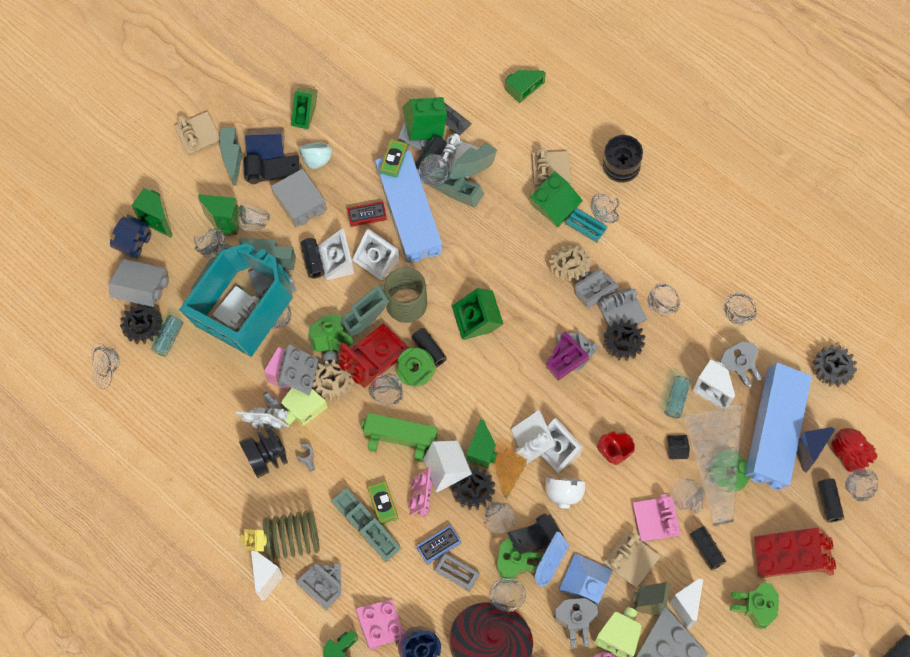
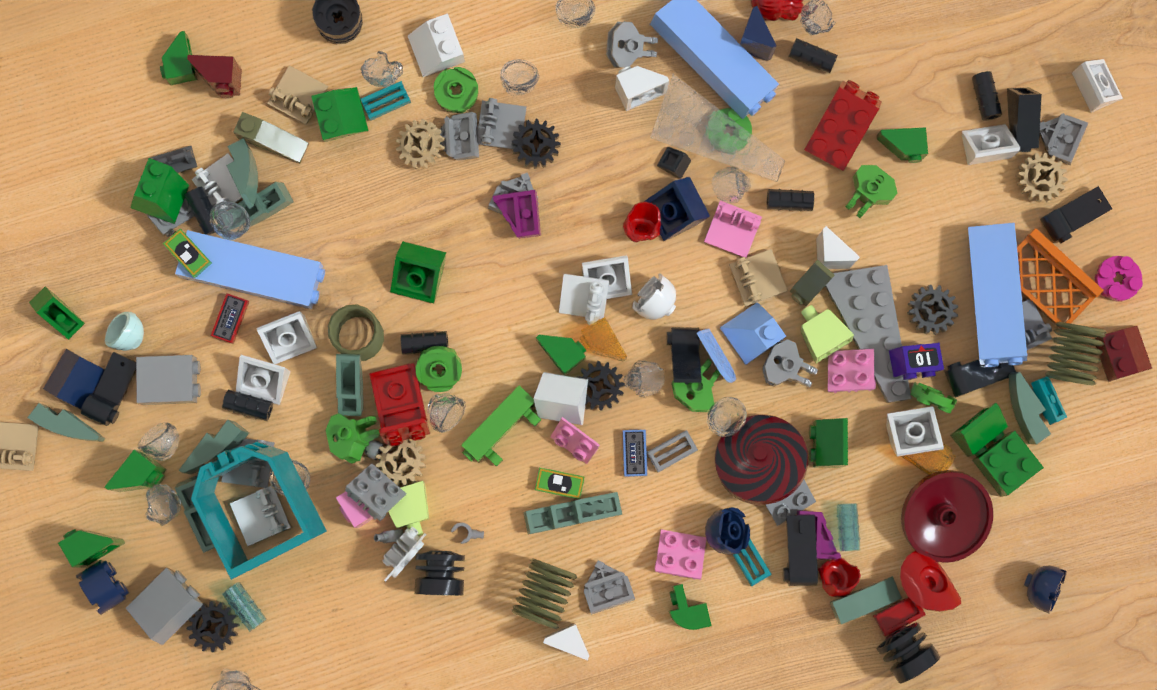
camera: 65 degrees left, 15 degrees up
(253, 539) = (530, 634): light yellow hinge -> none
(509, 166) = (270, 137): none -> slope
(531, 110) = (219, 72): none -> dark red slope
(623, 275) = (459, 102): none -> bright green plate
(645, 467) = (679, 207): none -> dark blue slope
(648, 234) = (436, 45): none -> white slope
(677, 397) = (626, 130): clear light blue axle -> none
(813, 611) = (905, 143): none -> green slope

